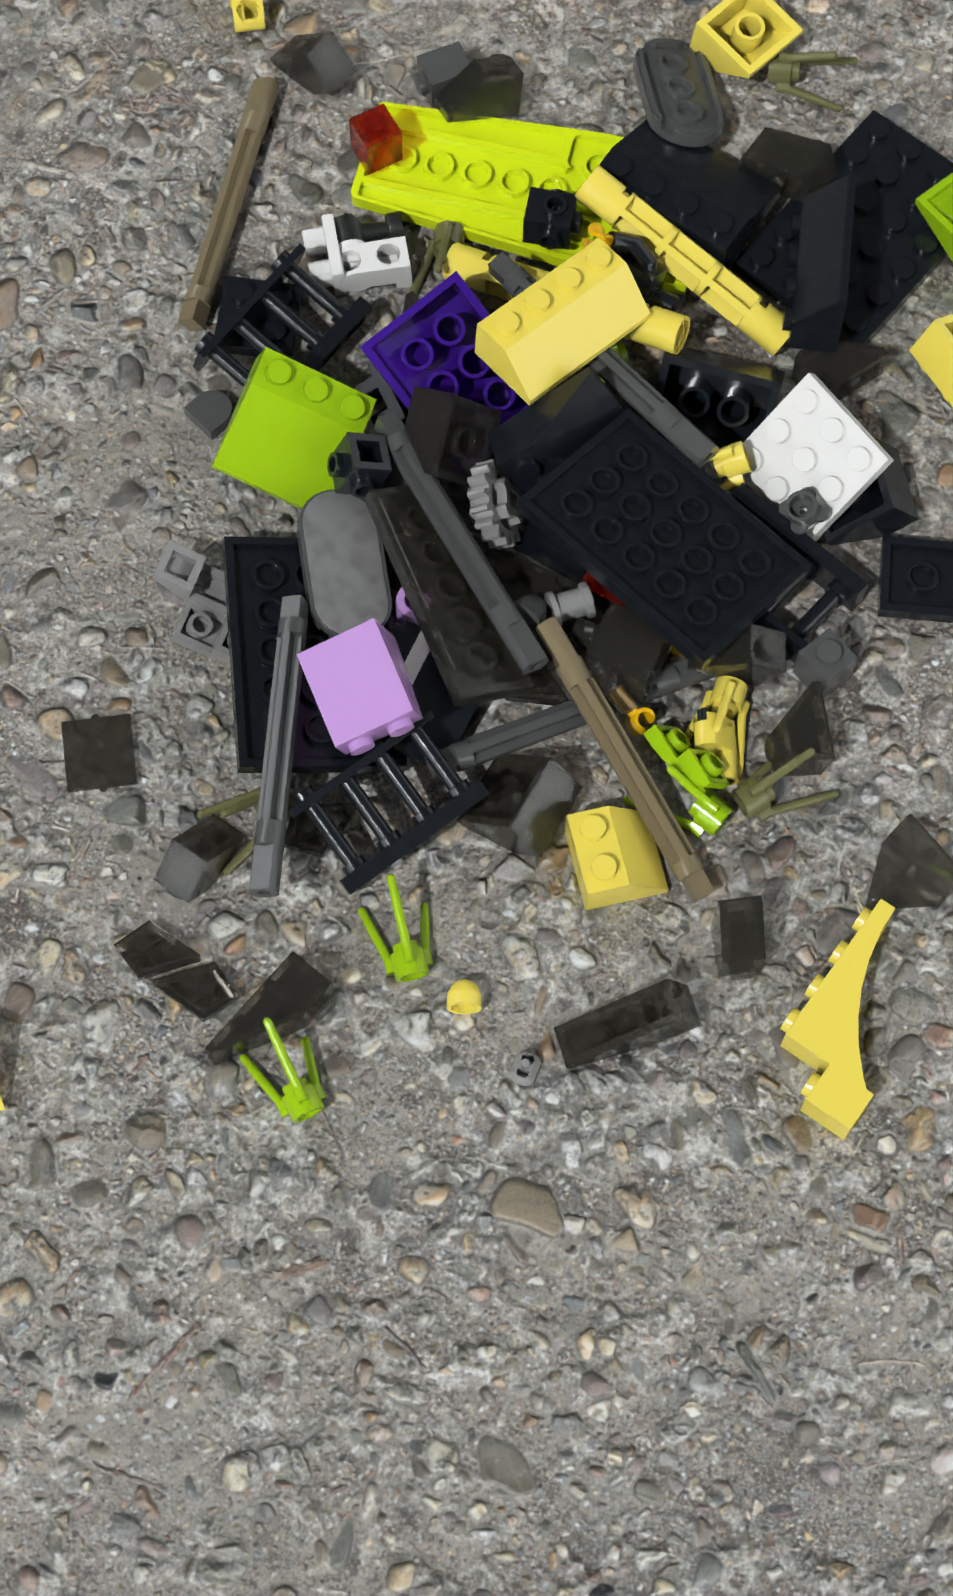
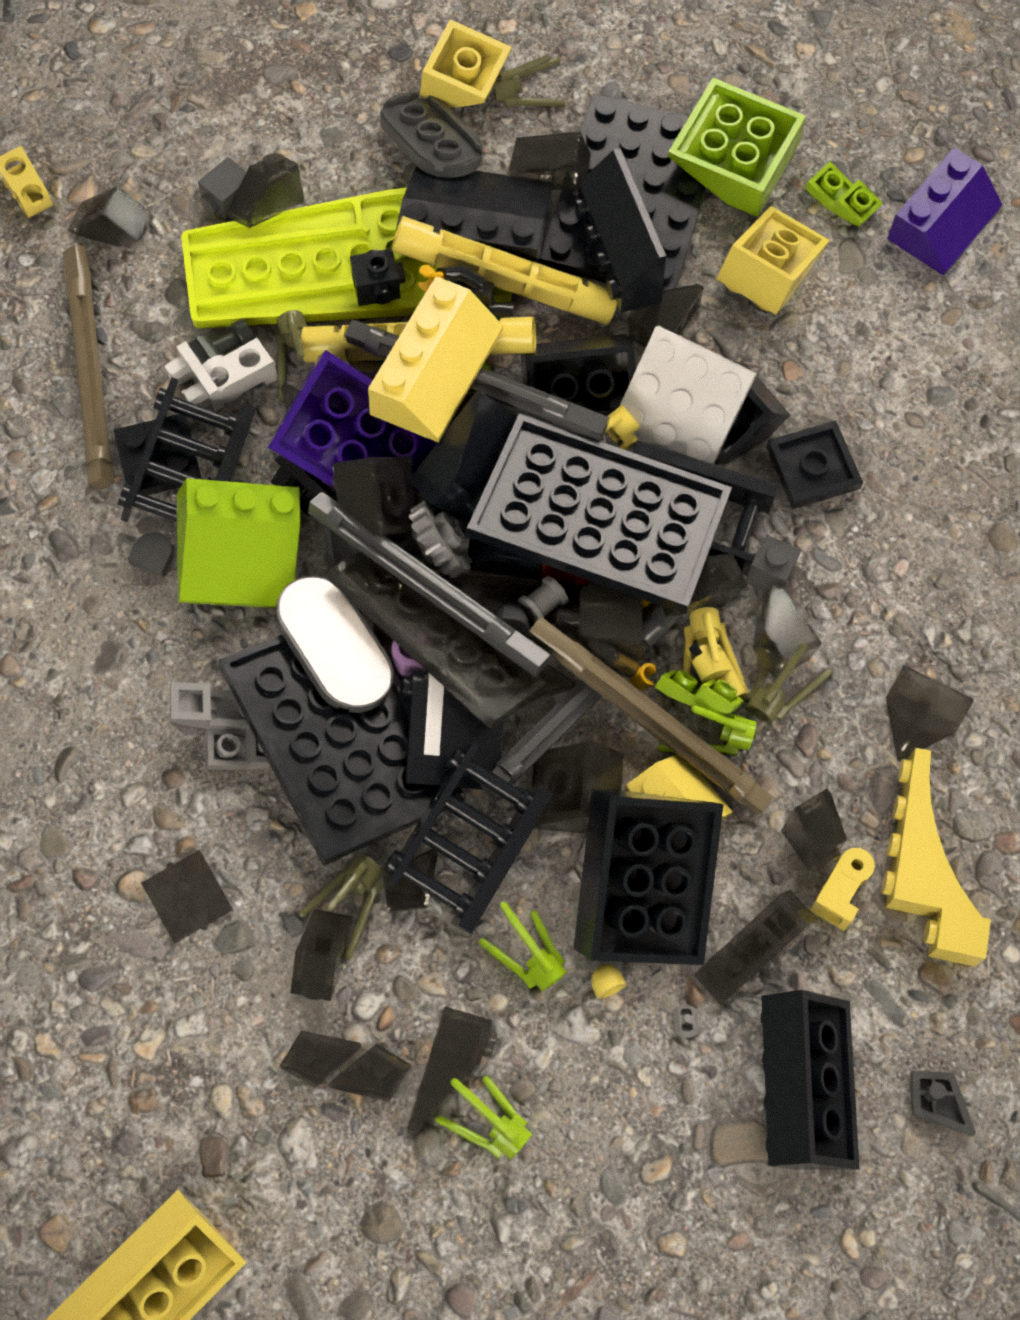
camera: 25 degrees left, 0 degrees up
(279, 749) = (354, 831): dark grey piece -> none
(359, 464) = (311, 549): black brick -> none
(361, 687) = (407, 748): lavender slope -> none
(375, 138) = (195, 263): clear red brick -> none
(546, 912) = (647, 878): none -> black slope
(618, 1174) = (809, 1082): none -> black slope
(738, 1005) = (845, 878): none -> light yellow leg
(741, 1248) = (939, 1100): none -> dark grey piece
(803, 499) = (692, 436): dark grey plate -> none

